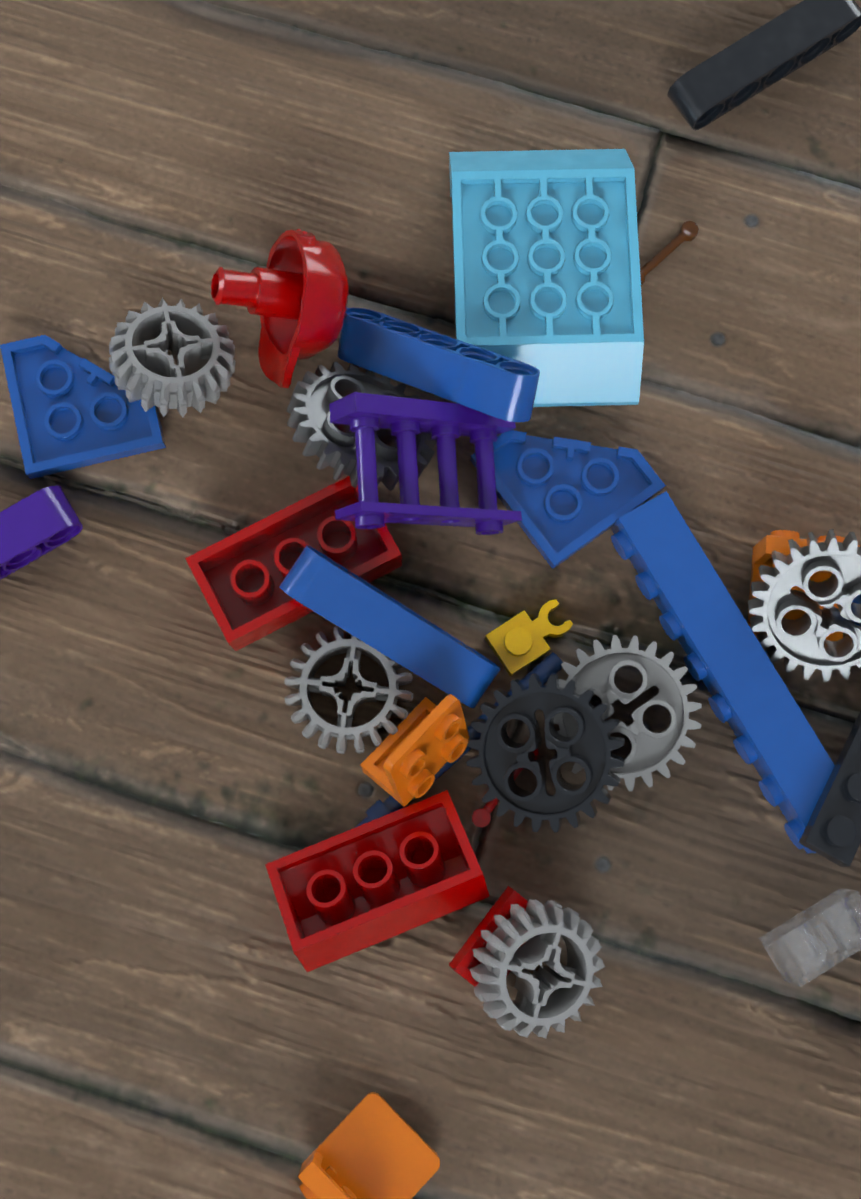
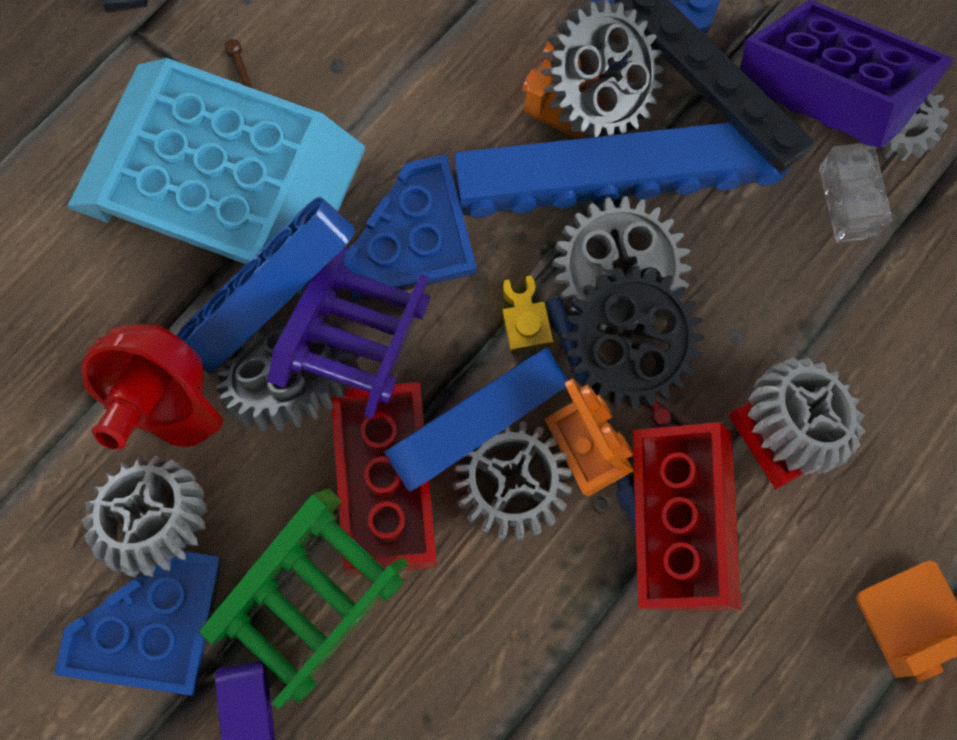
camera: 70 degrees left, 5 degrees down
(143, 489) = (261, 588): none -> green fence

